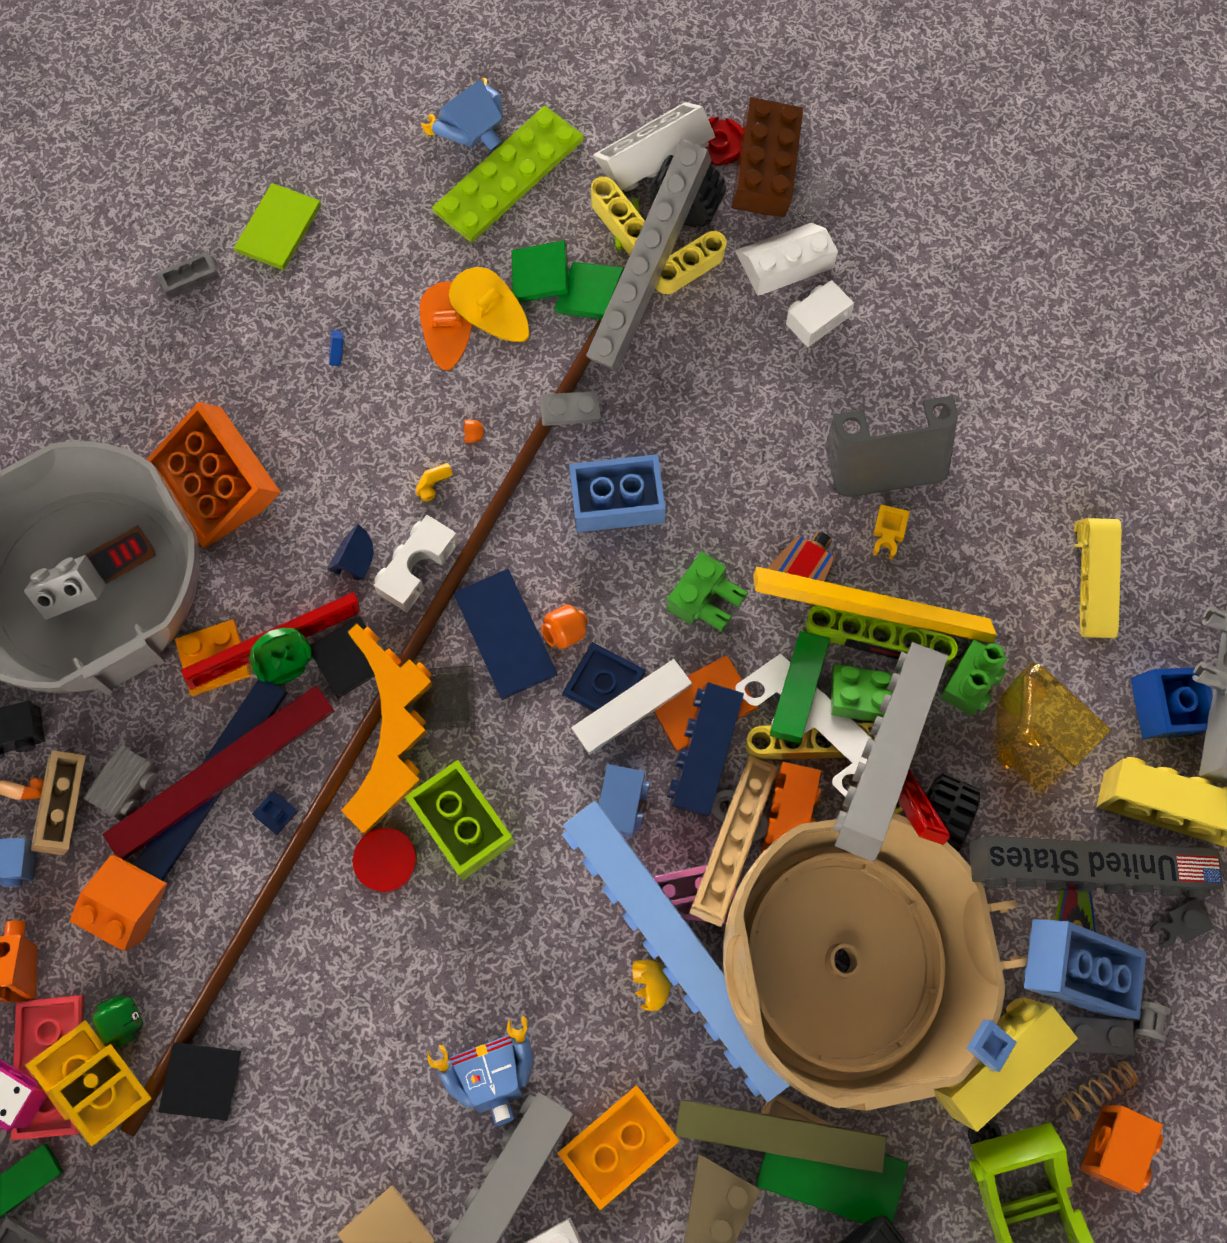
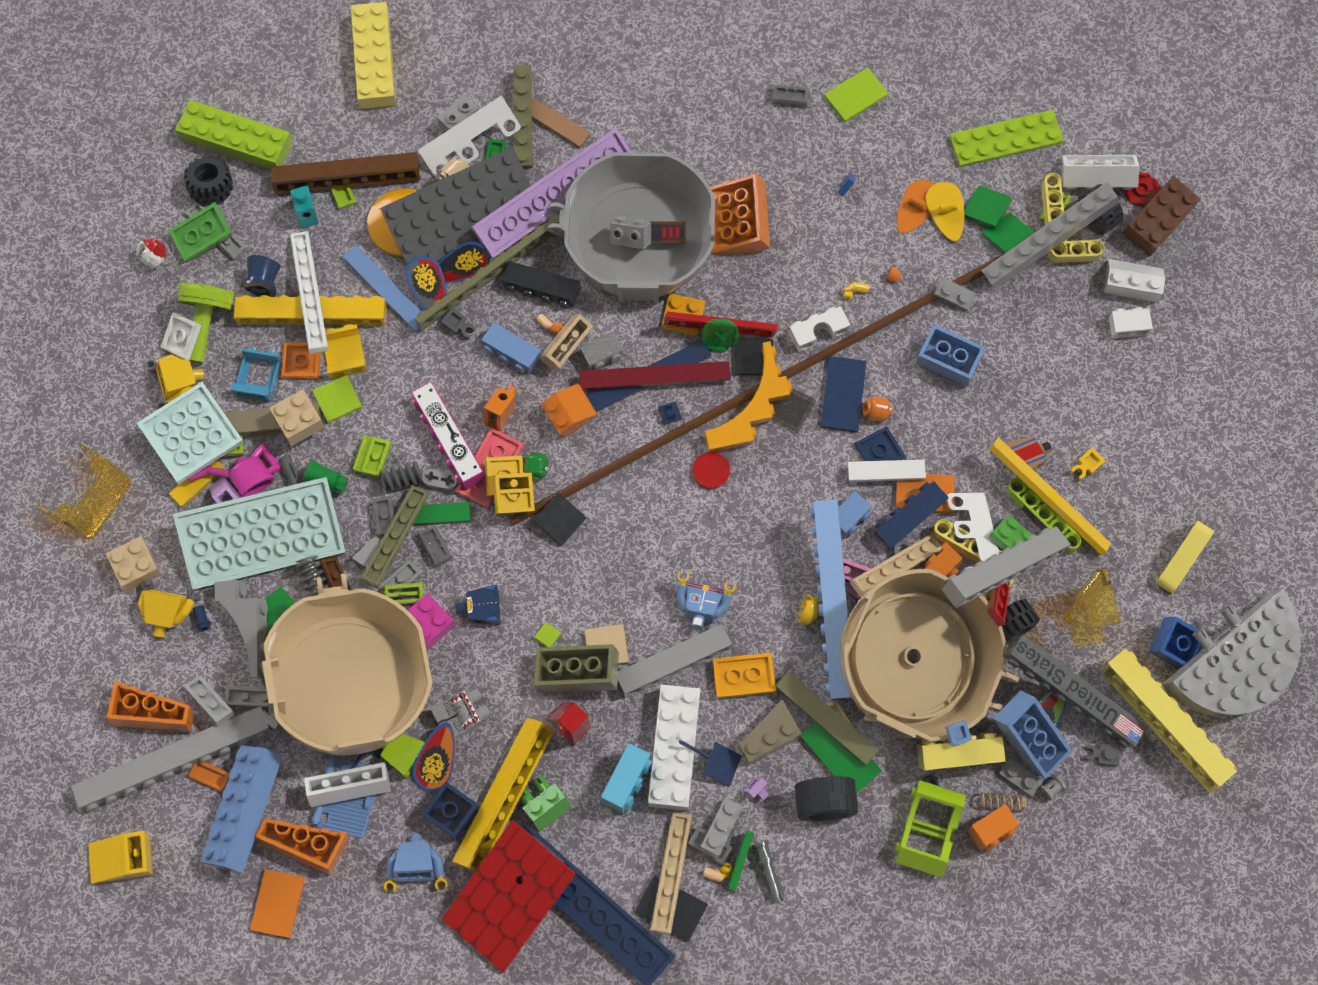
camera: 30 degrees right, 0 degrees up
(353, 554) = (788, 304): dark blue brick -> none
(460, 820) = (762, 473): lime brick -> none
(470, 117) = (1004, 93): medium blue torso -> none
(697, 586) = (961, 431): bright green brick -> none
(799, 687) = (981, 514): green tile -> none
(891, 460) = (1116, 427): dark grey windscreen -> none
(974, 677) = (1078, 566): bright green brick -> none

